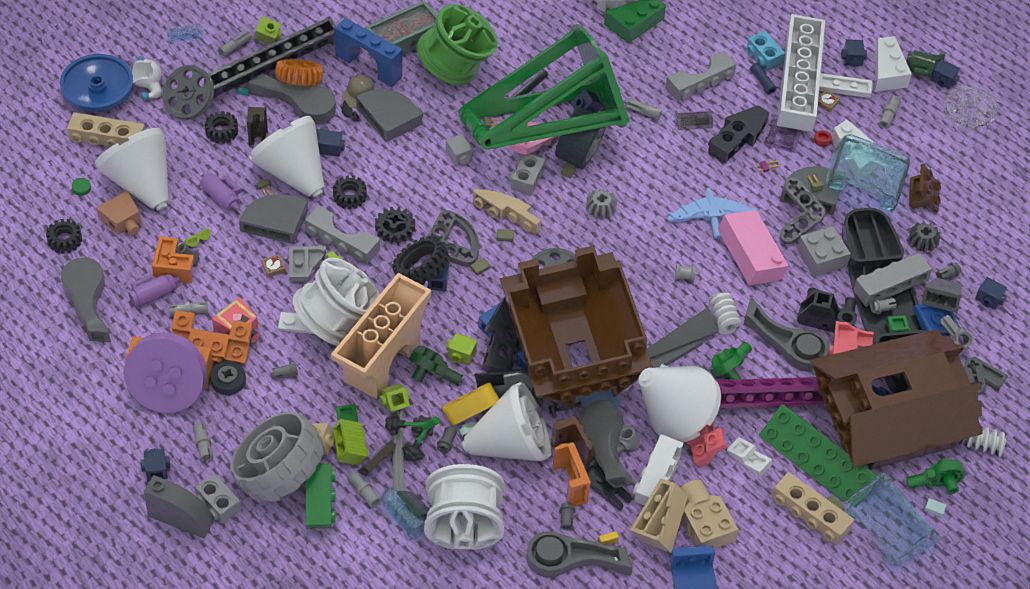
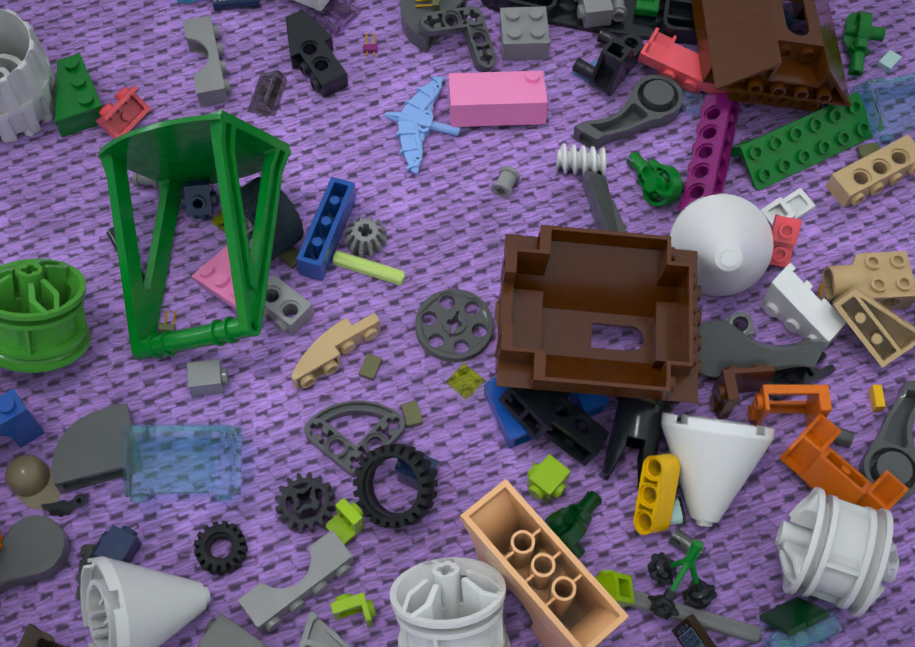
camera: 70 degrees left, 10 degrees up
(389, 249) = (347, 521): none -> lime bracket
(395, 148) = (181, 460): none -> clear light blue windscreen
(521, 526) = (824, 468): none -> orange bracket
(579, 210) = (369, 267): none -> yellowish green axle
(586, 178) = (326, 229): none -> blue brick
(634, 46) = (123, 113): none -> coral bracket

